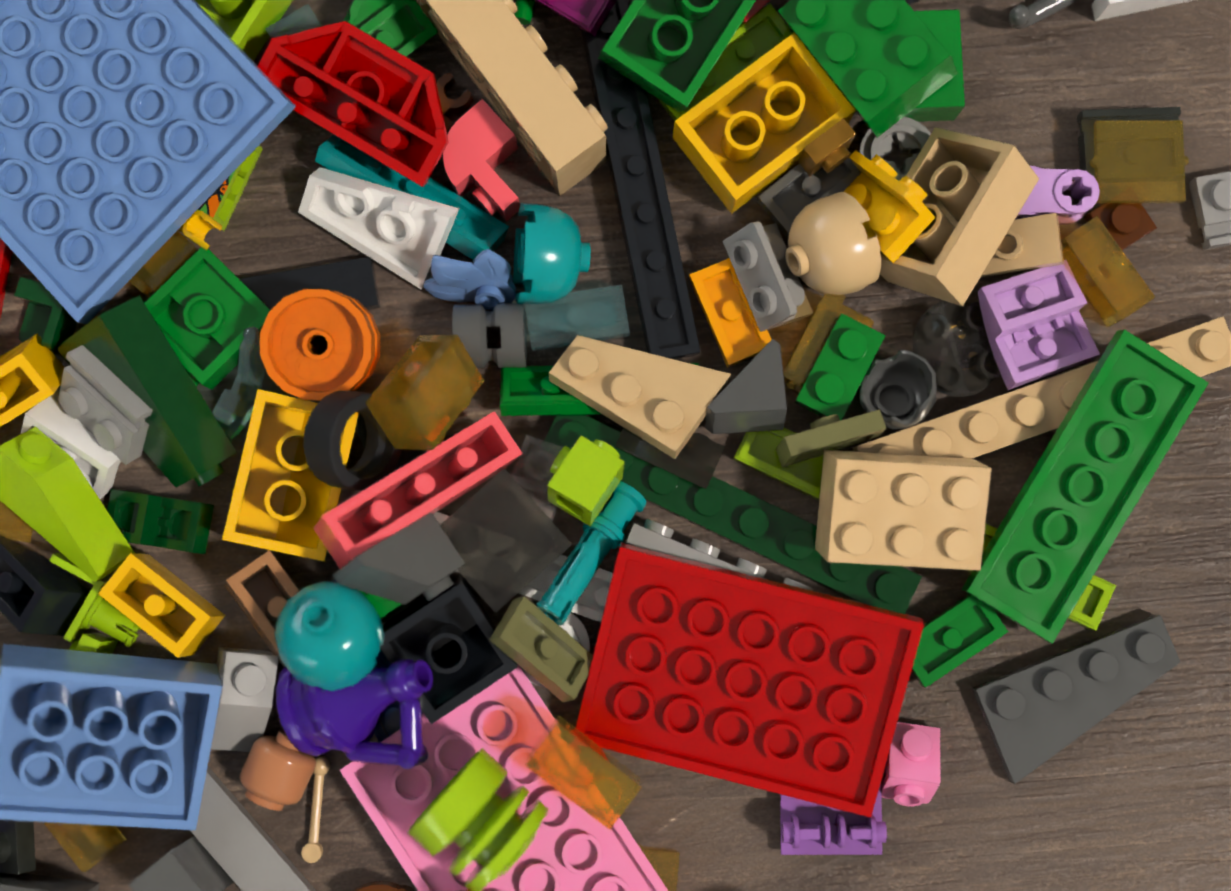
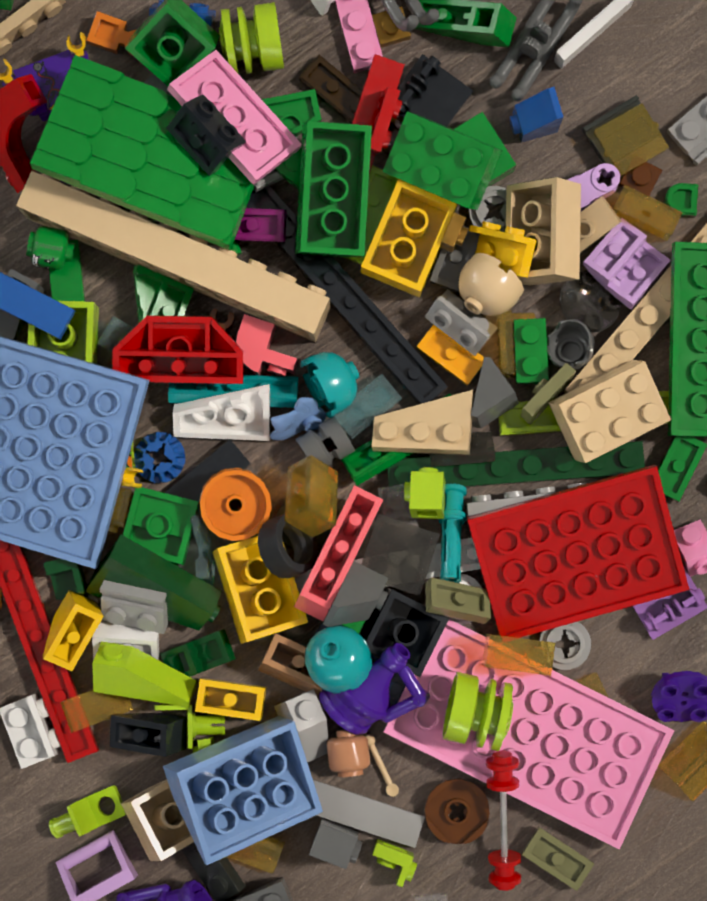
camera: 25 degrees left, 0 degrees up
(286, 229) = (165, 471): none -> blue gear
(667, 813) = (576, 654): none -> light grey gear
(1031, 58) = (537, 116): none -> blue slope
(1166, 281) = (683, 198): none -> green tile

